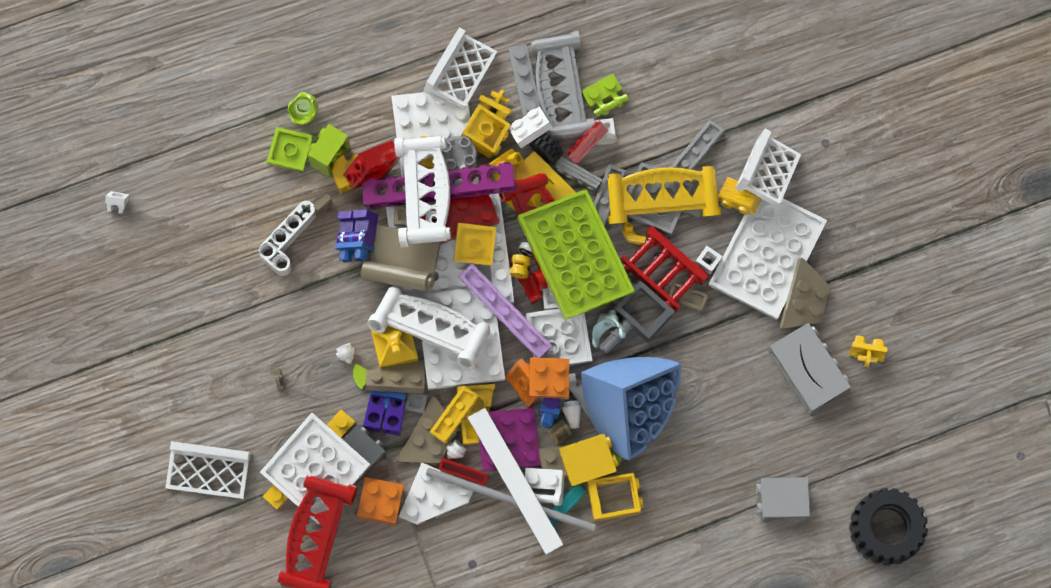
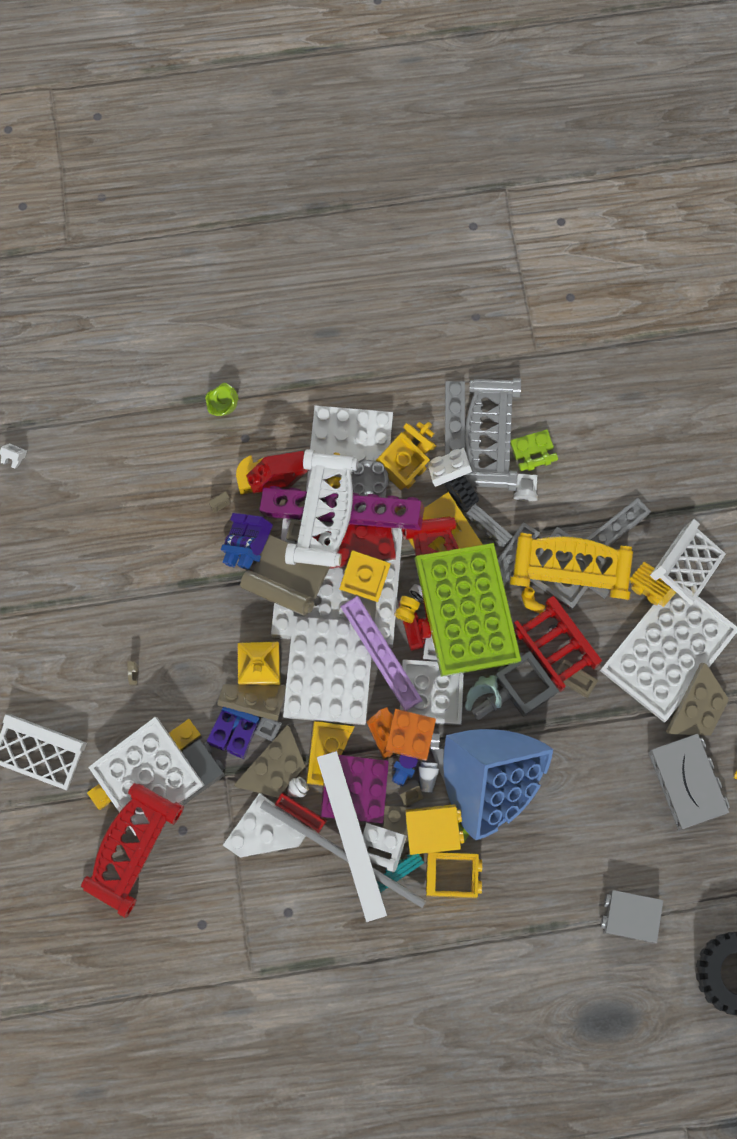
camera: 15 degrees right, 0 degrees up
(289, 149) = (199, 438): lime plate -> none
(290, 234) = (179, 527): white beam -> none
(327, 149) = (236, 446): lime brick -> none
(346, 353) = (207, 660): white plate -> none
(359, 375) = (216, 687): lime tile -> none
(380, 501) = (207, 825): orange brick -> none
(448, 58) = (376, 385): white fence -> none
(454, 414) = (304, 750): yellow tile -> none
(466, 347) = (331, 682): white piece -> none
(509, 156) = (421, 493): yellow hips -> none
(589, 140) = (506, 494): red piece -> none
(708, 254) = (608, 638): white plate -> none

